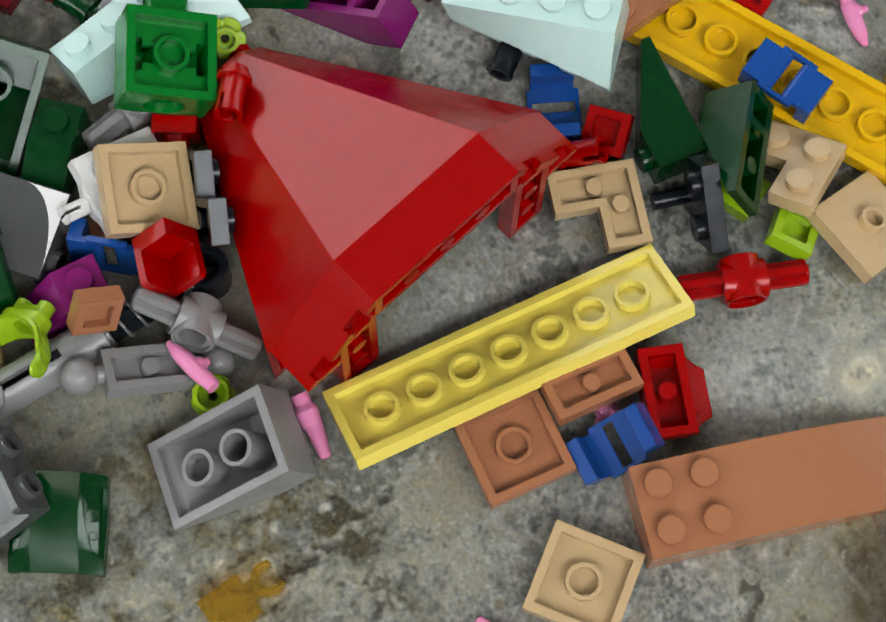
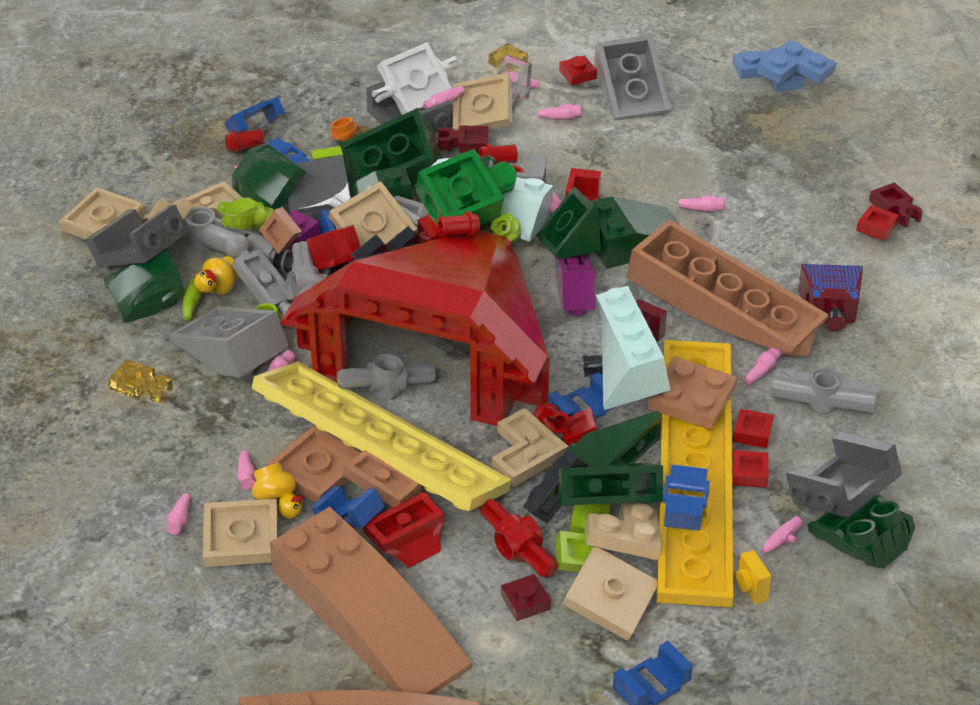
camera: 65 degrees right, 30 degrees down
(103, 425) = (216, 276): none -> yellow animal
(109, 466) = (190, 299): none -> lime piece
(193, 366) = (275, 295): bright pink helmet -> none
(406, 319) = (386, 376): none -> light grey axle
(474, 533) = (245, 470): none -> bright pink piece
(534, 511) = (275, 483): none -> yellow animal
(821, 315) = (525, 597): none -> dark red plate

